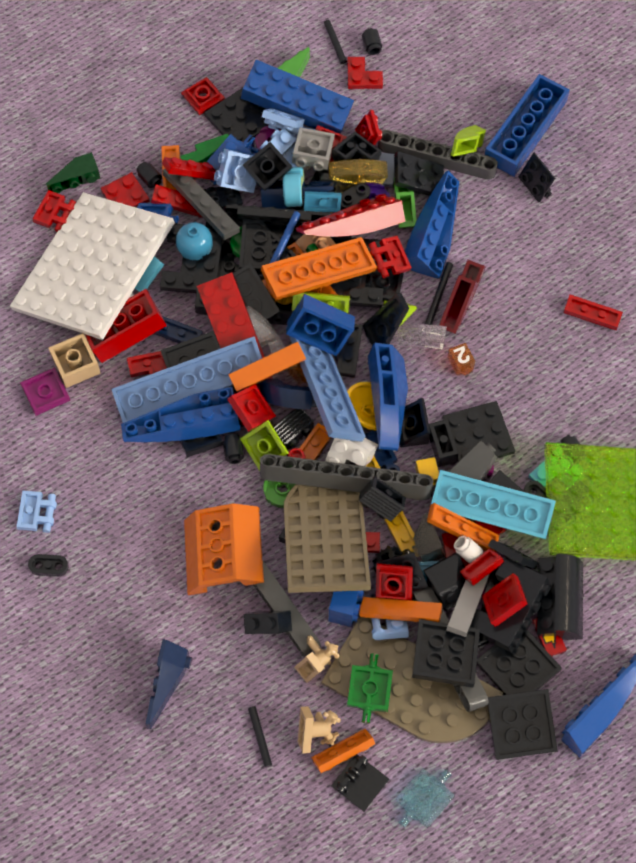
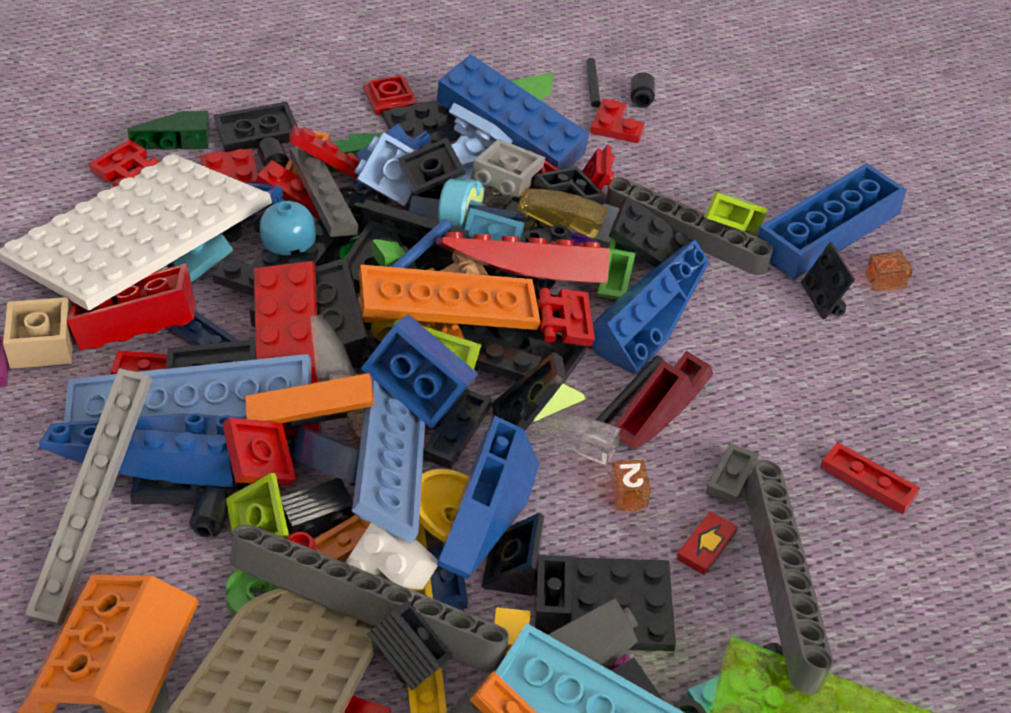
camera: 15 degrees right, 20 degrees down
(126, 152) = (249, 126): none -> black plate
(169, 462) = (88, 498): none -> light grey plate
(267, 244) = (386, 252): none -> bright green slope
(513, 382) = (707, 543): none -> red tile
(515, 333) = (732, 473): none -> dark grey plate
(564, 393) = (788, 579): none -> dark grey beam
(571, 155) = (888, 271): none -> clear orange brick

